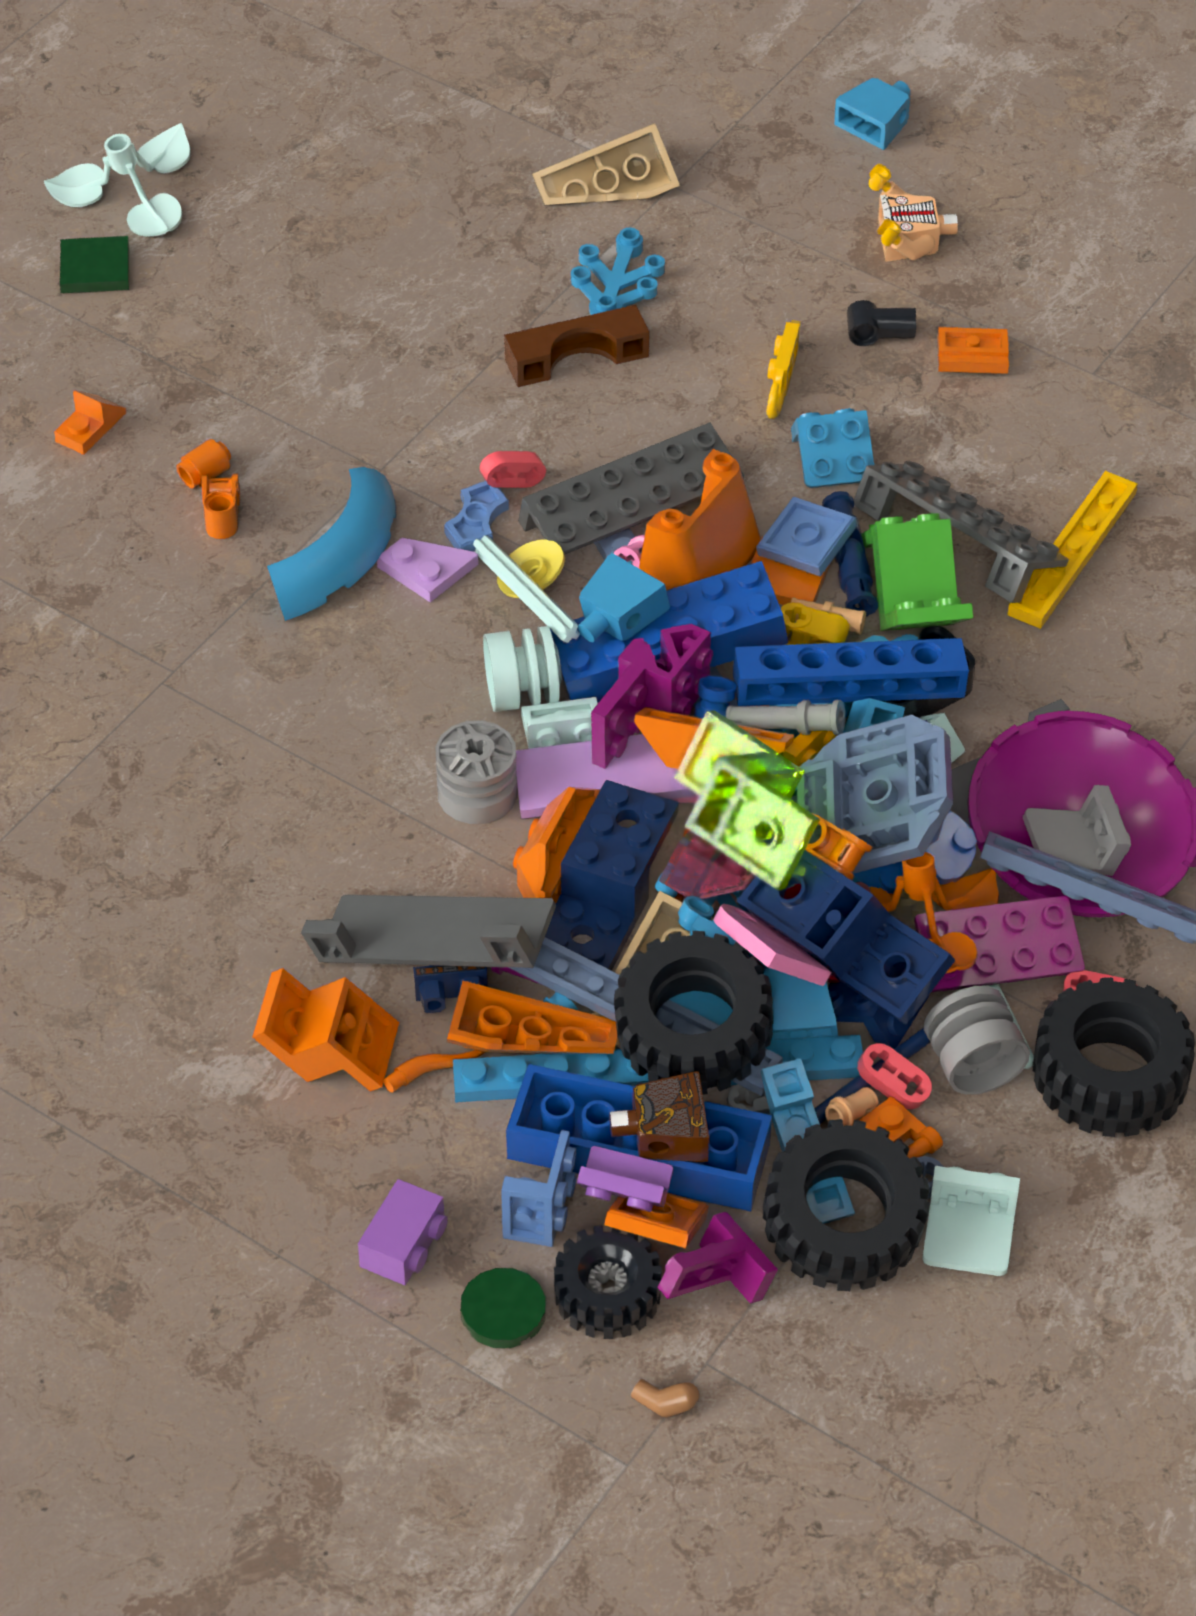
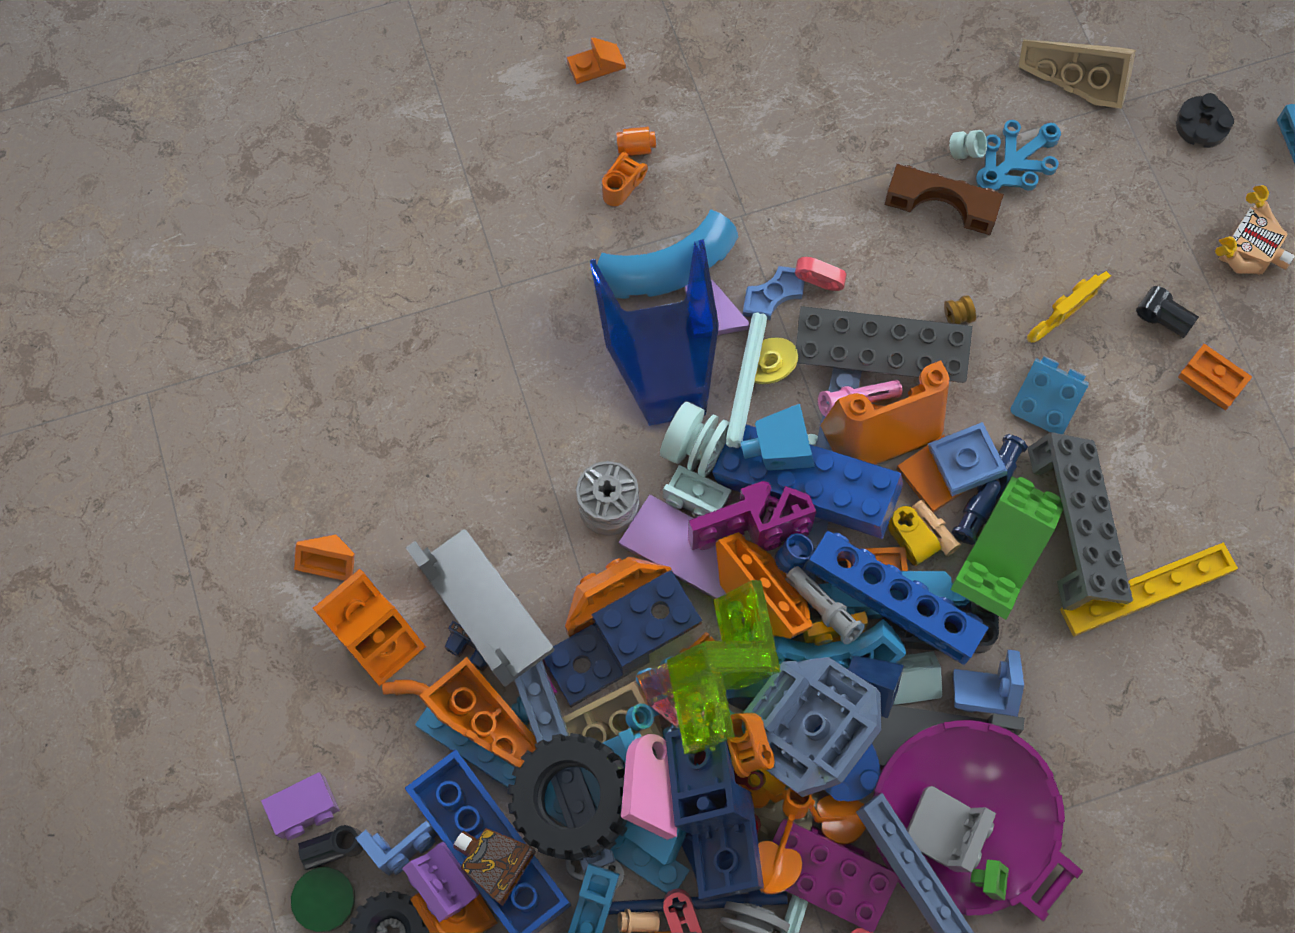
camera: 40 degrees right, 20 degrees up
(212, 1012) = (325, 557): none -> orange slope
(417, 611) = (664, 348): none -> clear blue windscreen
(468, 1251) = (328, 847): none -> black piece
(559, 286) = (969, 144): none -> light aqua wheel
(682, 420) = (960, 310): none -> pearl gold wheel
(783, 154) = (1204, 107): none -> black plate
(1023, 691) = (991, 692): none -> medium blue bracket
(1152, 850) = (992, 880): none -> bright green tile

